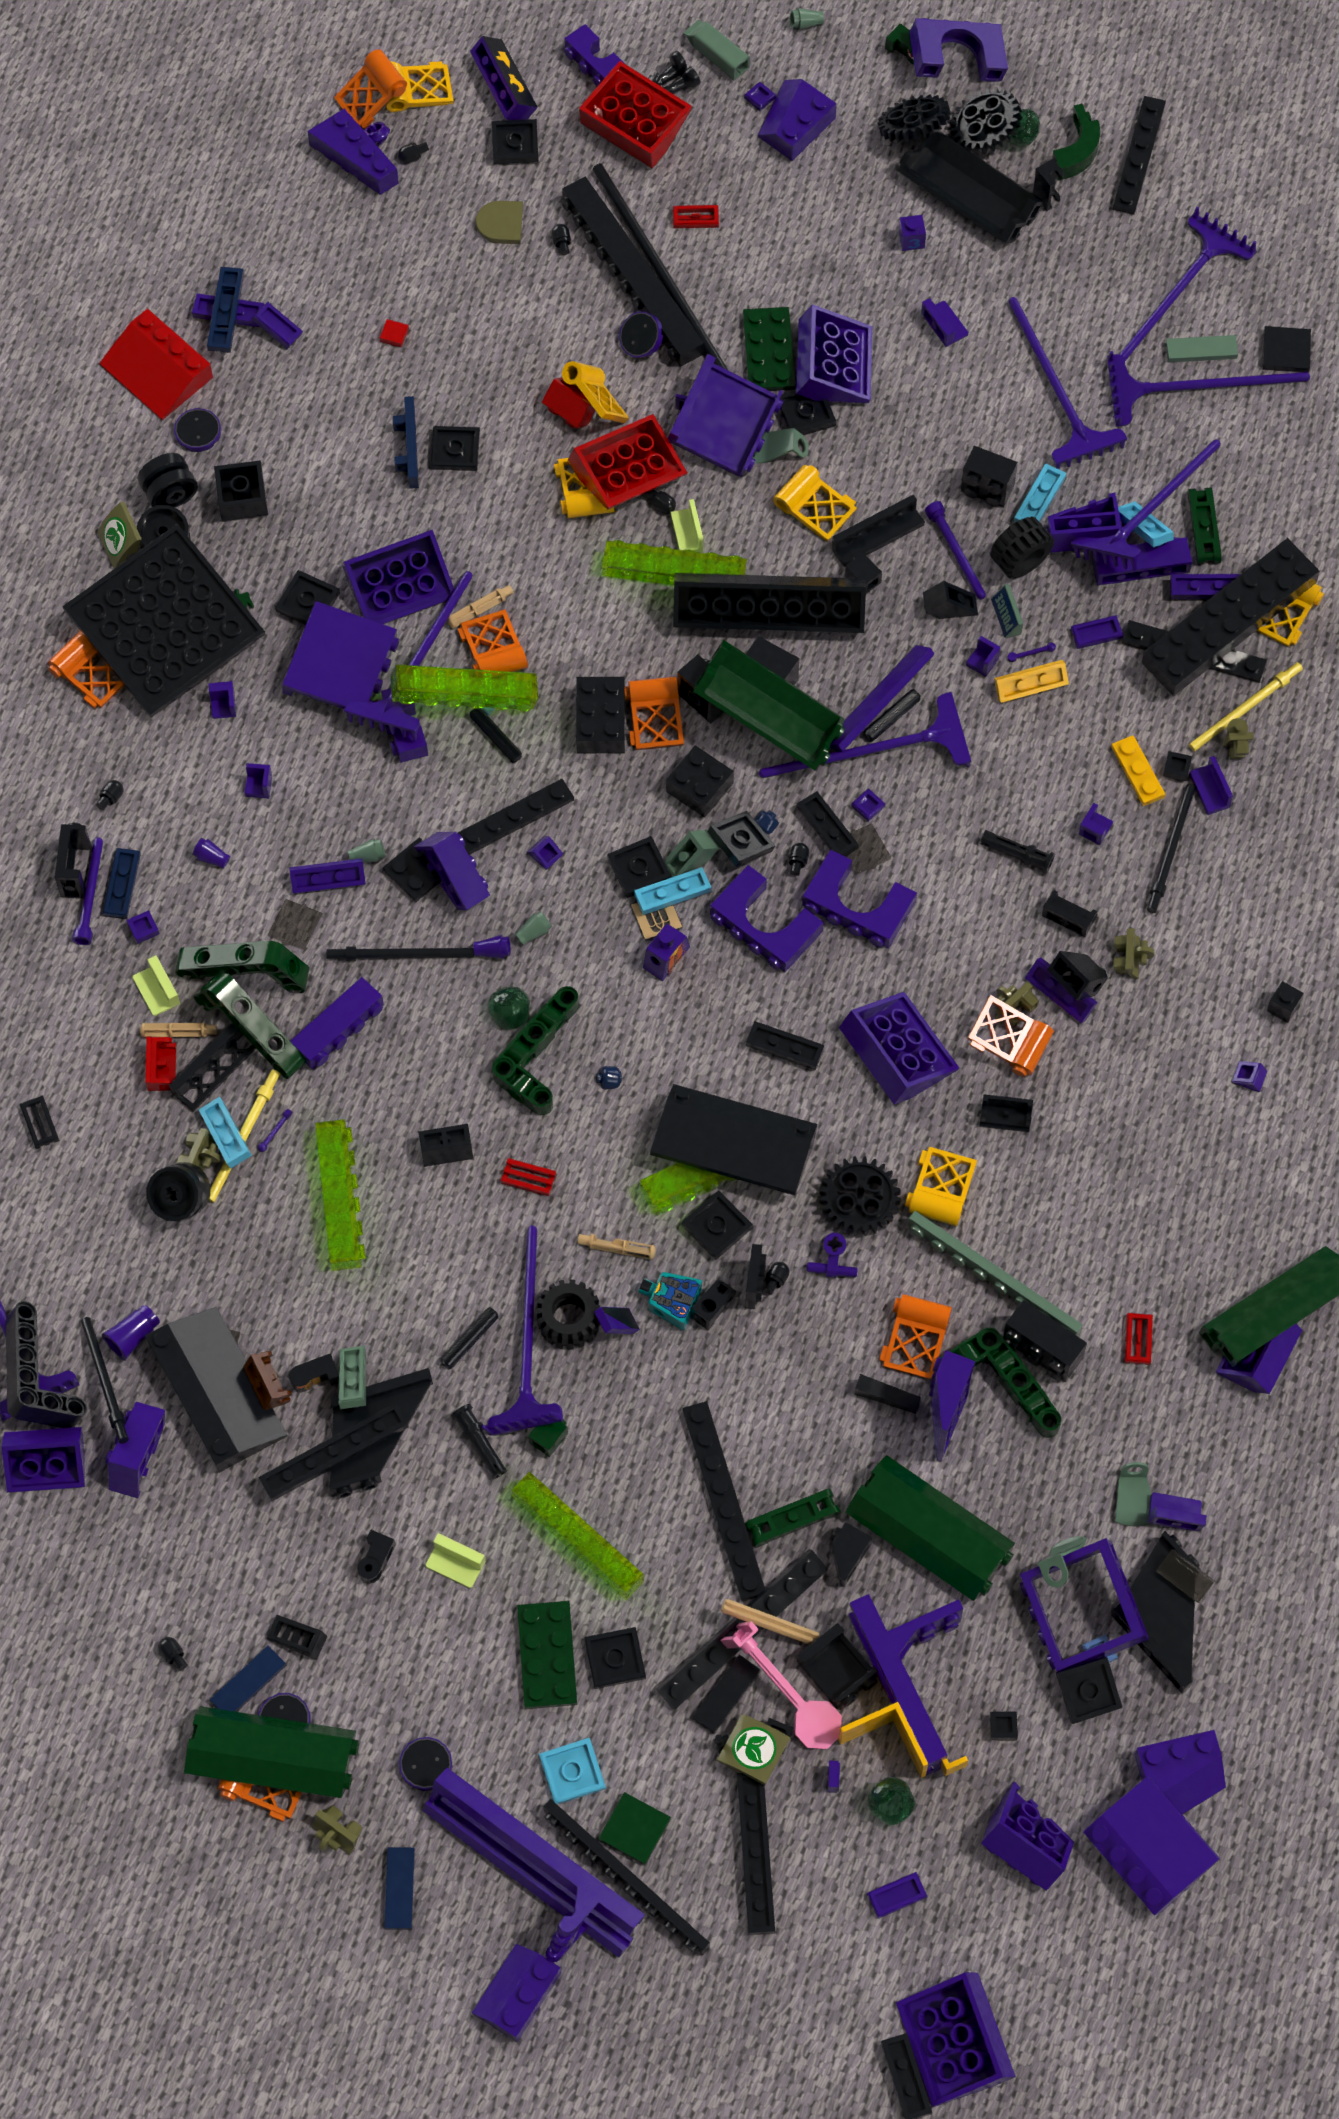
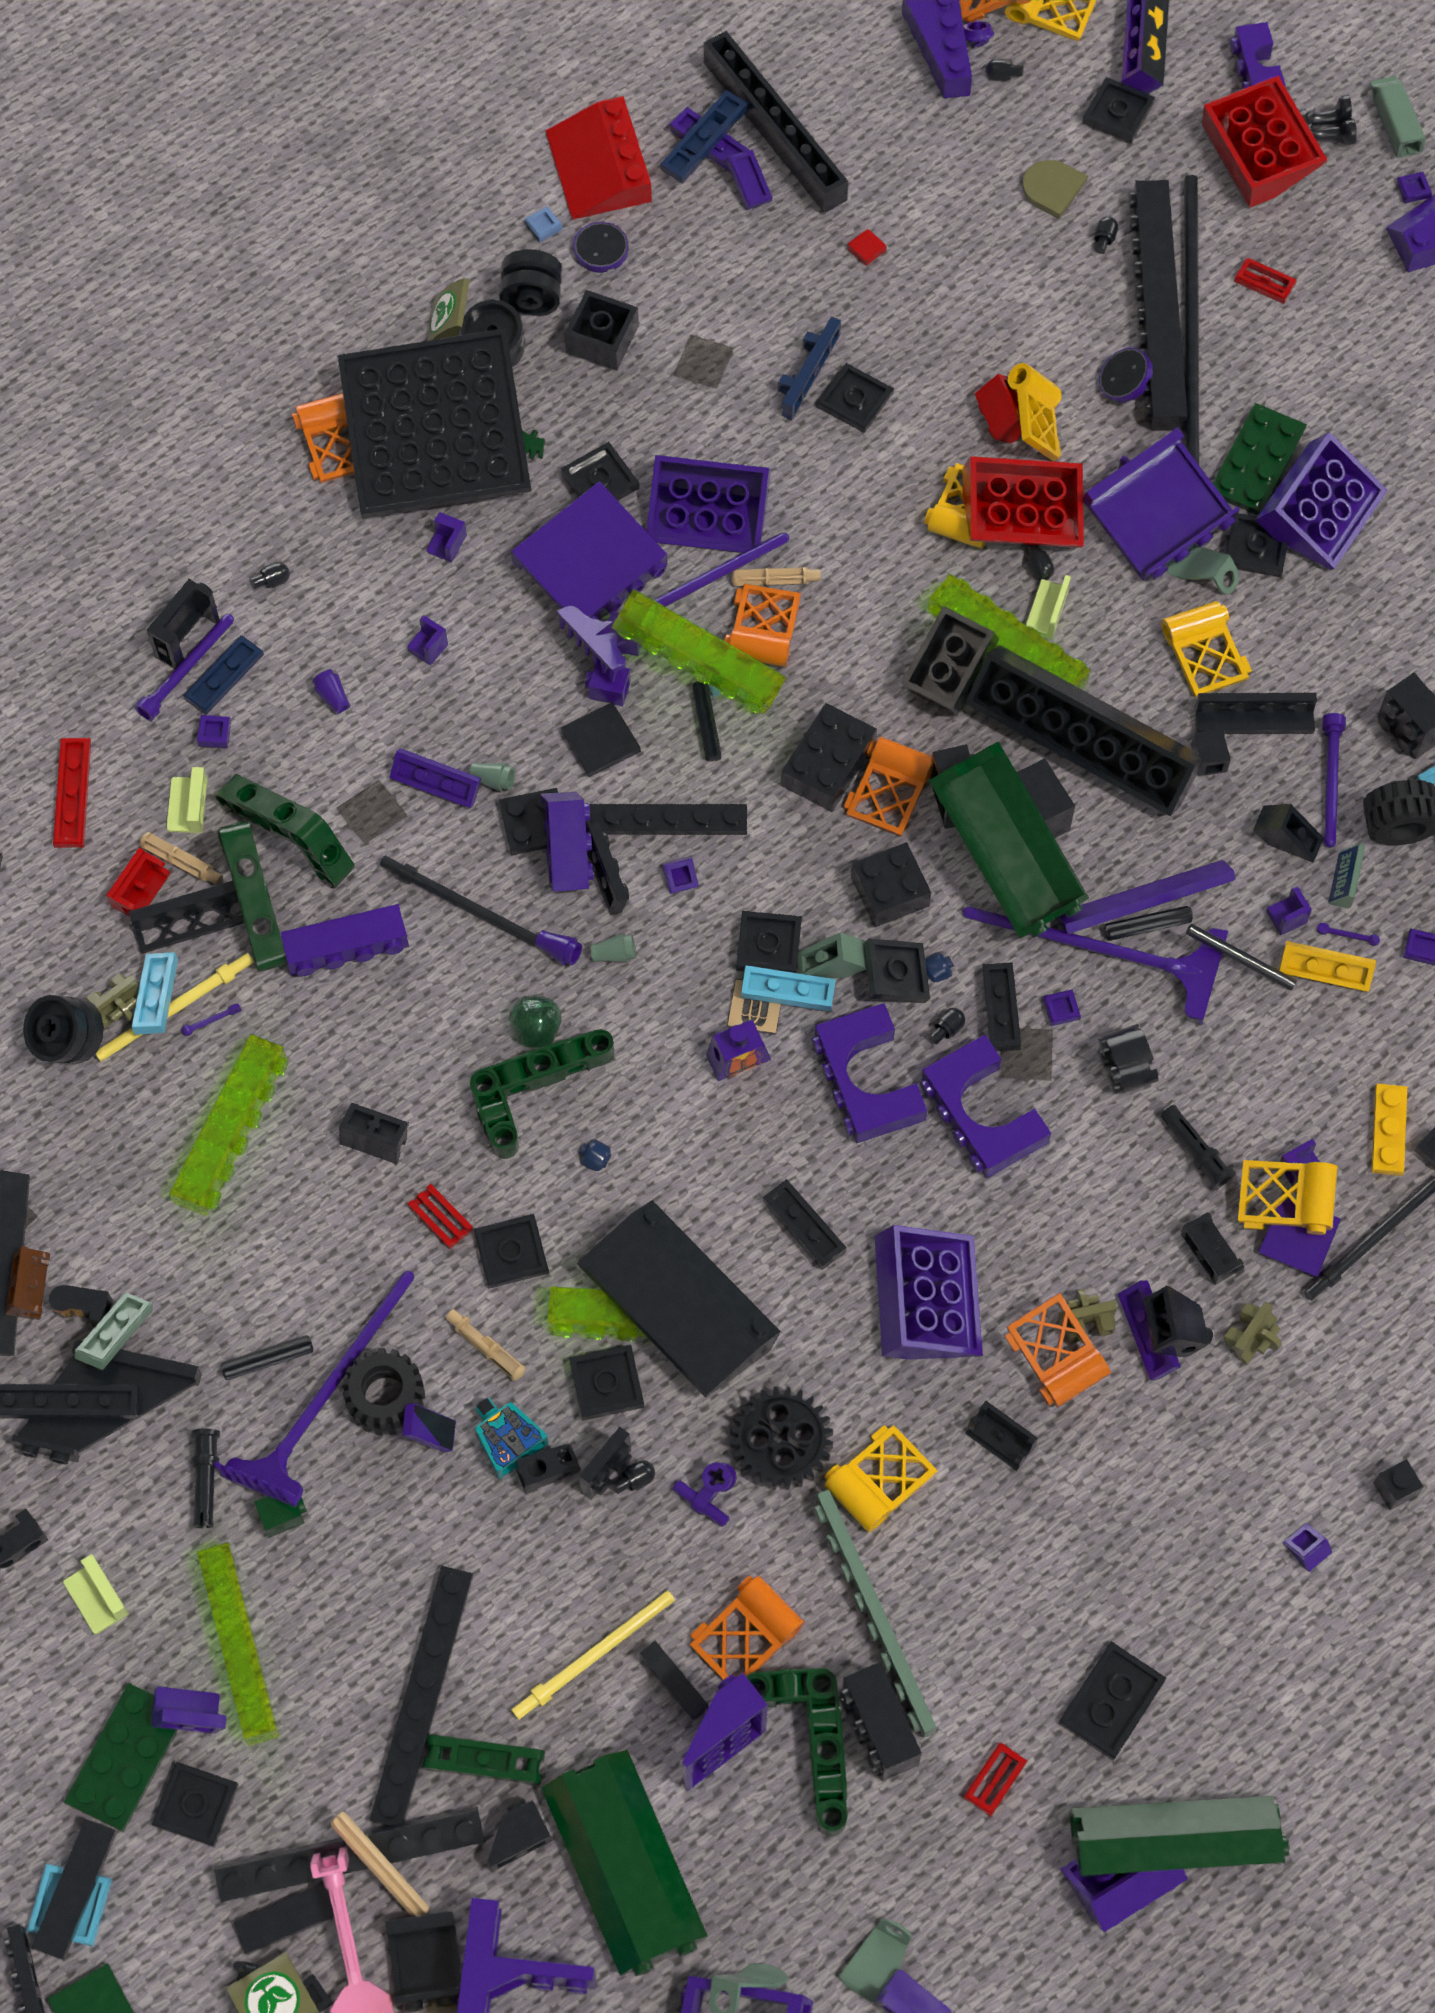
camera: 30 degrees right, 0 degrees up
(65, 1025) = (72, 793): none -> red tile
(143, 434) = (543, 224): none -> medium blue tile
(271, 272) = (776, 122): none -> black brick
(327, 477) = (703, 361): none -> clear smoke piece
(428, 787) = (600, 739): none -> black tile
(497, 880) = (606, 870): none -> black plate
(571, 1757) = (74, 1889): none -> black tile
(572, 1599) = (187, 1710): none -> dark purple panel
(593, 1173) = (511, 1251): none -> black tile
(646, 602) = (949, 660): none -> black brick
(805, 1451) = (542, 1693): none -> light yellow bar
(937, 814) = (1128, 1059): none -> black brick
(971, 704) = (1241, 956): none -> black bar
(1119, 841) = (1314, 1196): none -> yellow piece
(1122, 873) = (1296, 1246): none -> dark purple slope
(1183, 1246) = (1112, 1701): none -> black tile

